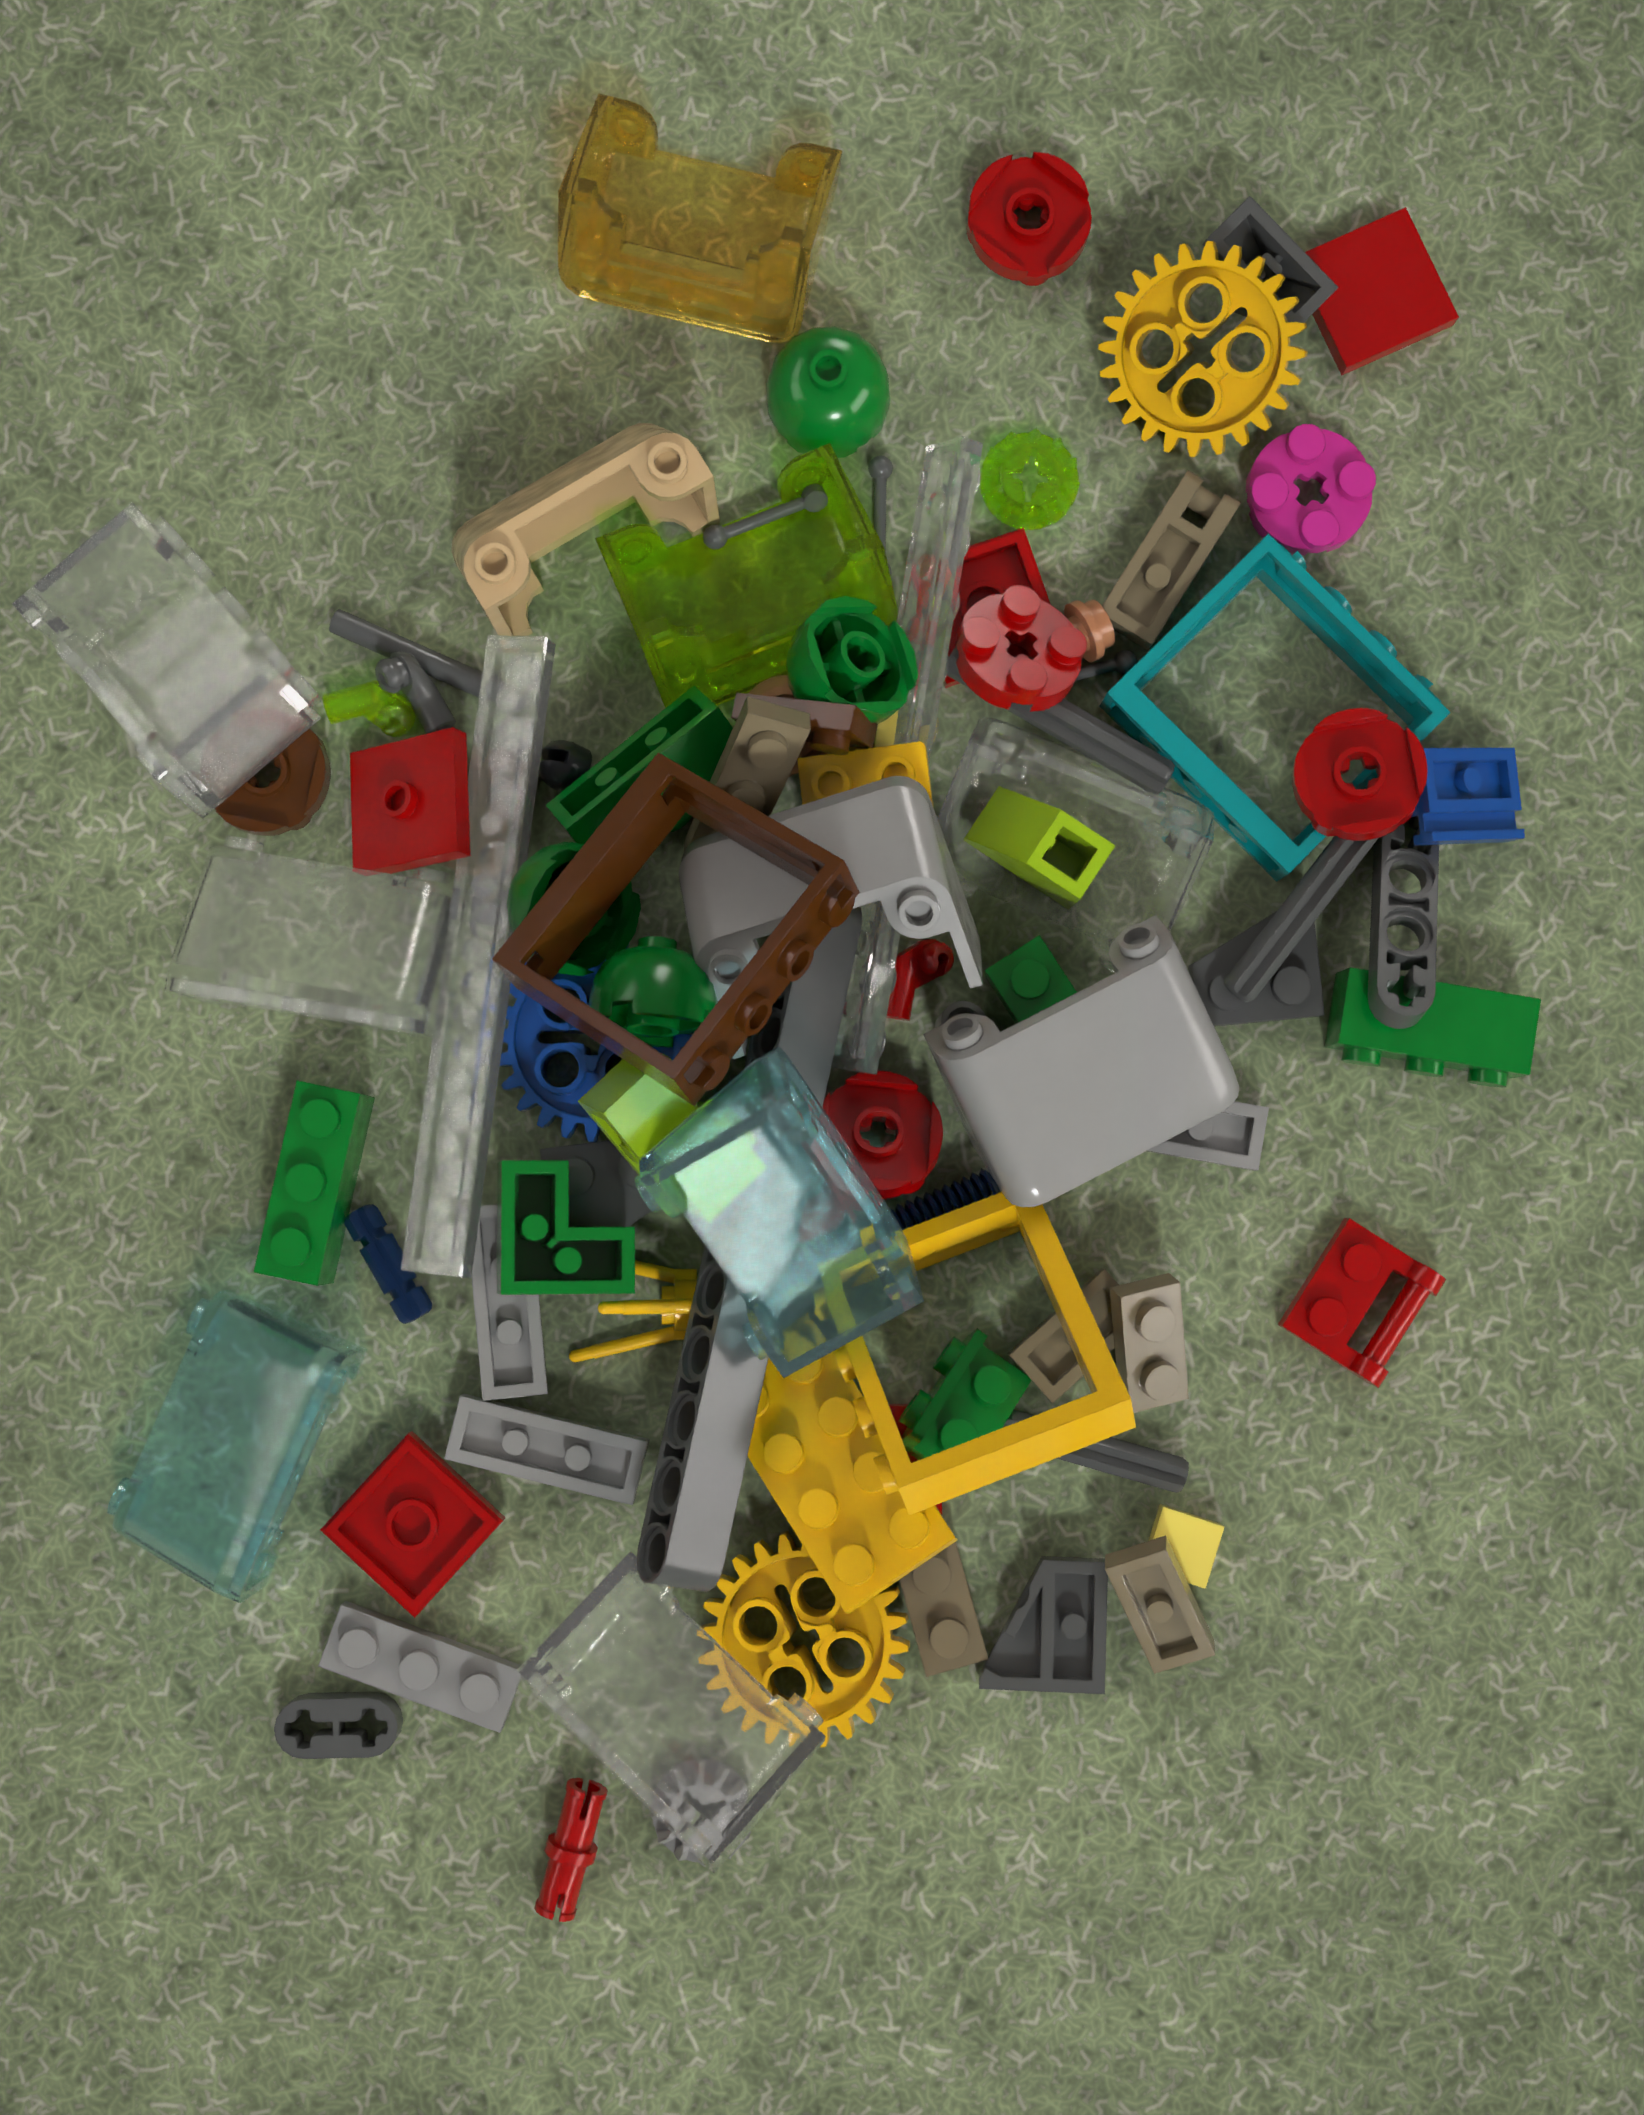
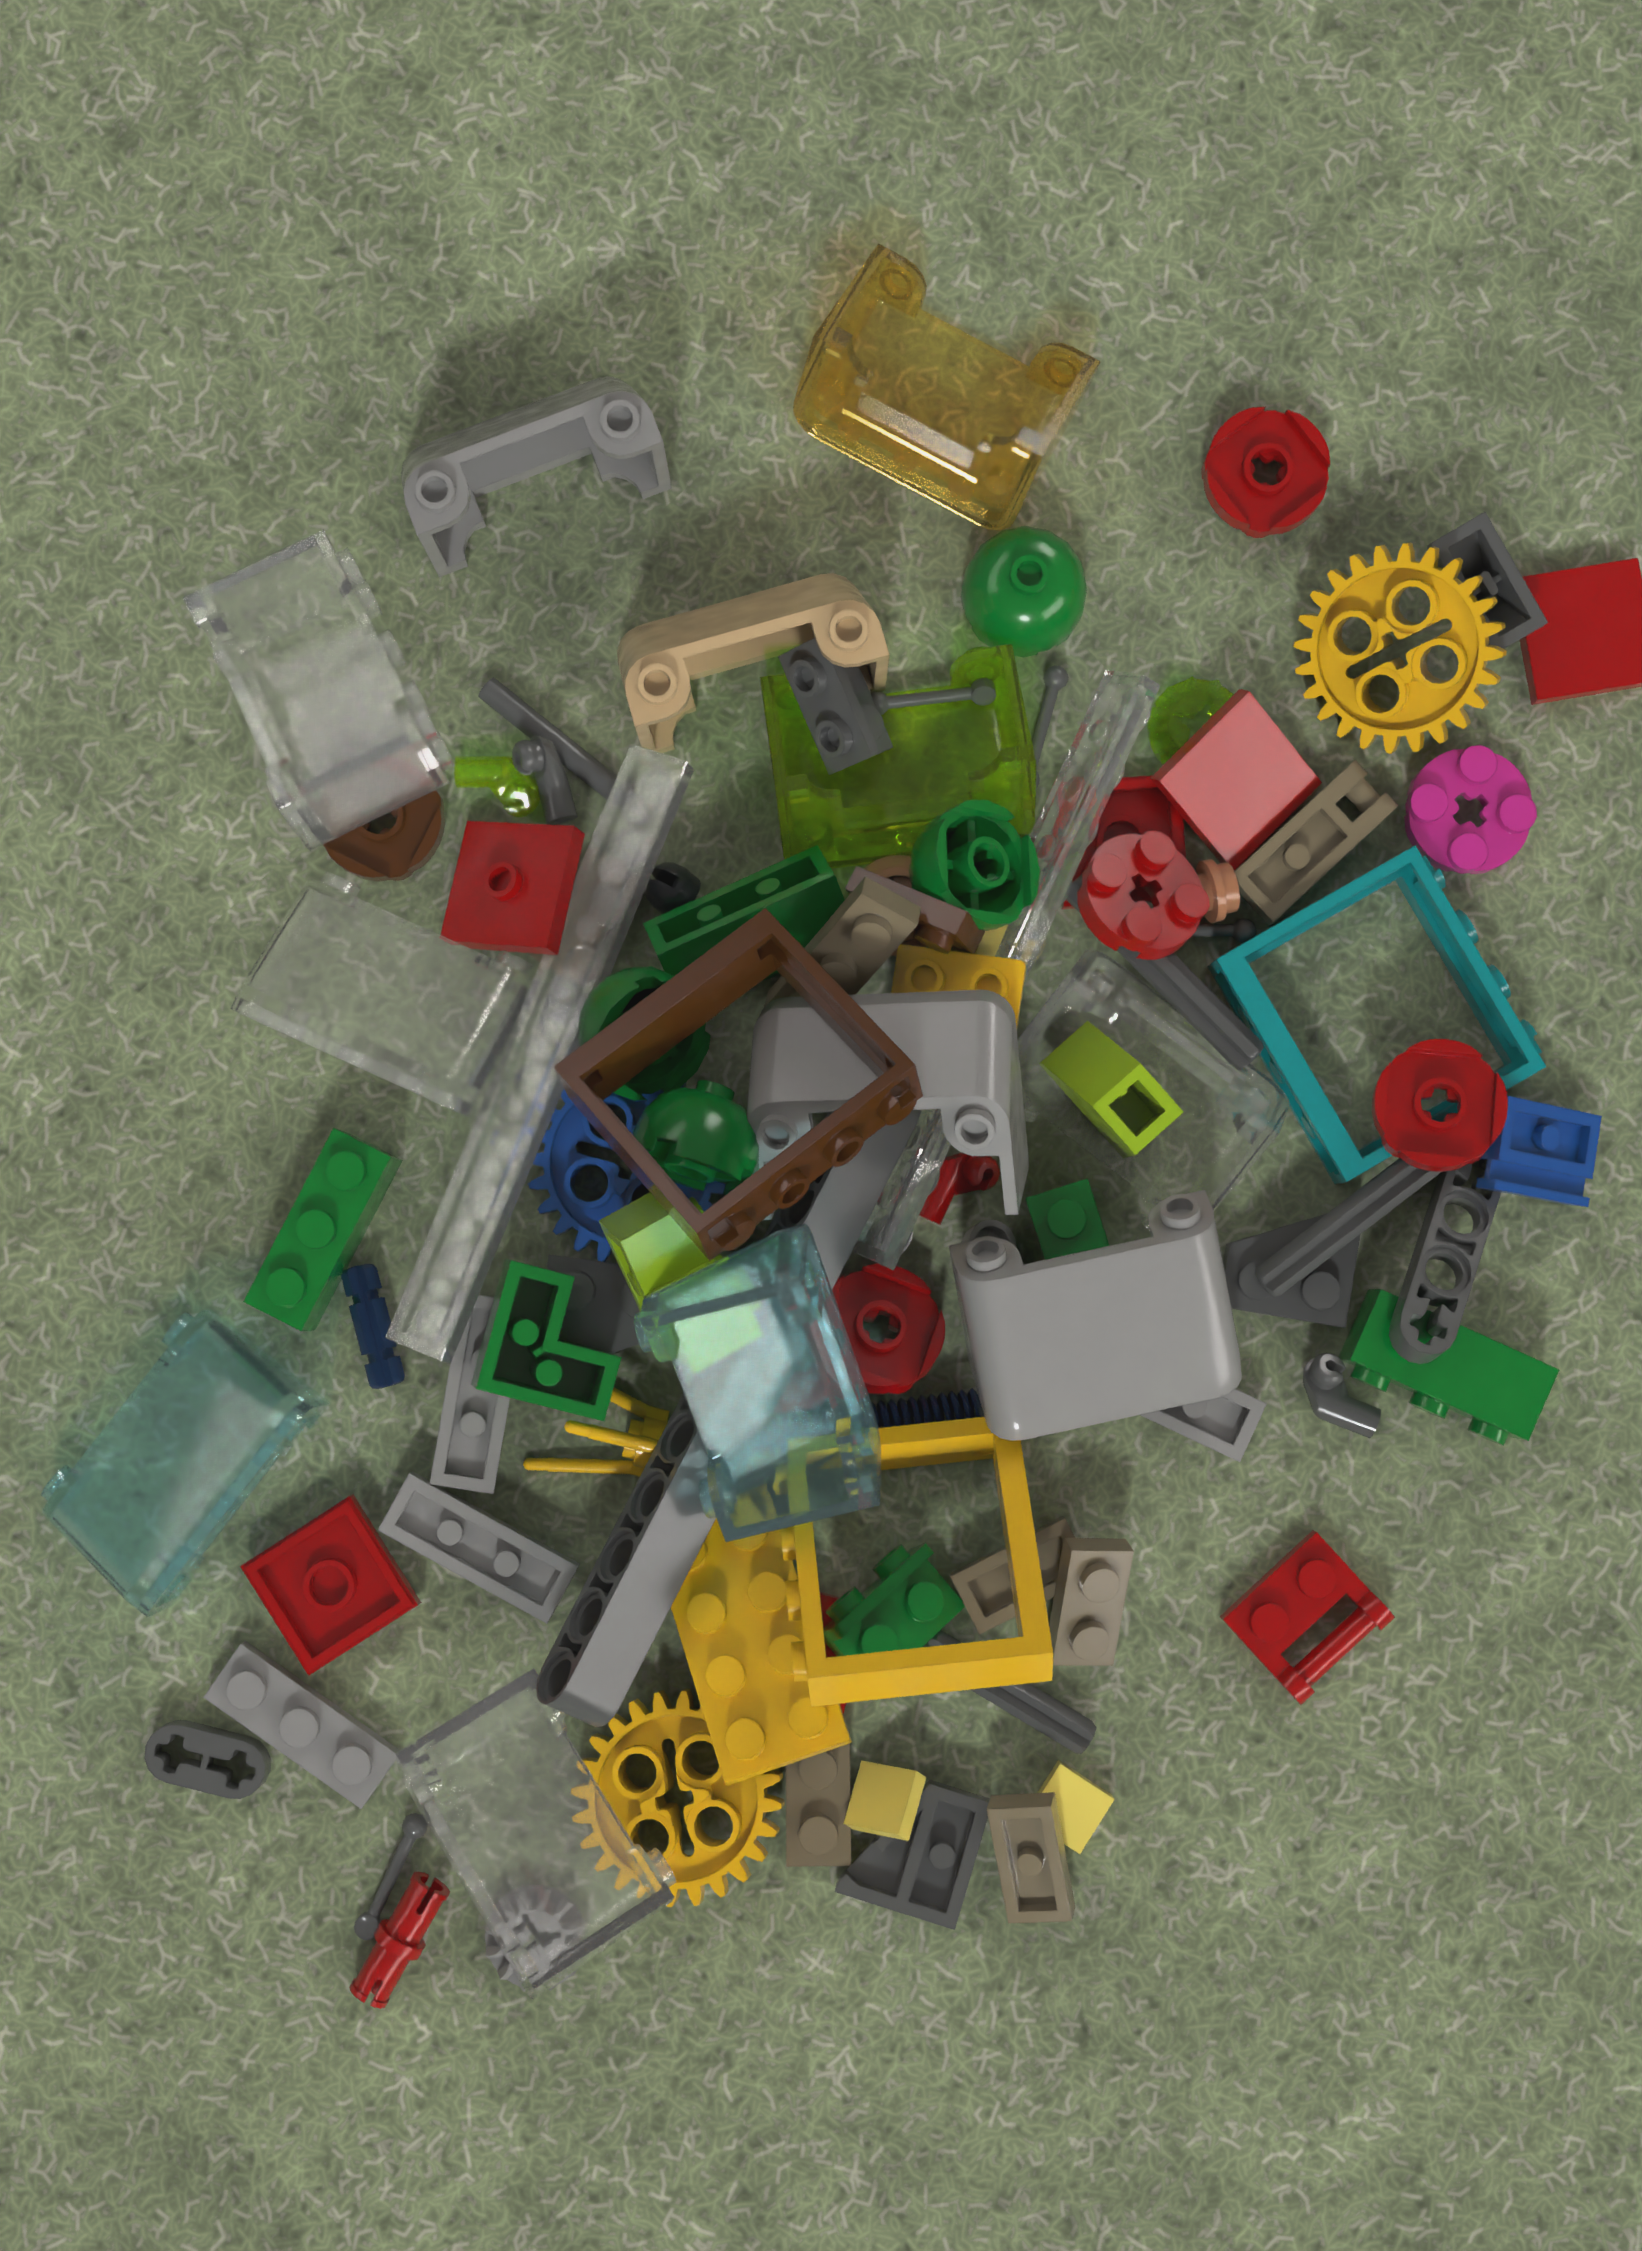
camera: 15 degrees right, 0 degrees up
(375, 333) = (591, 418): none -> light grey windscreen
(556, 1736) = (414, 1827): none -> dark grey hinge
(675, 546) = (835, 707): none -> dark grey bracket
(1004, 1587) = (885, 1800): none -> light yellow tile
(1079, 517) = (1236, 779): none -> tile
(1327, 1086) = (1331, 1399): none -> dark grey arm

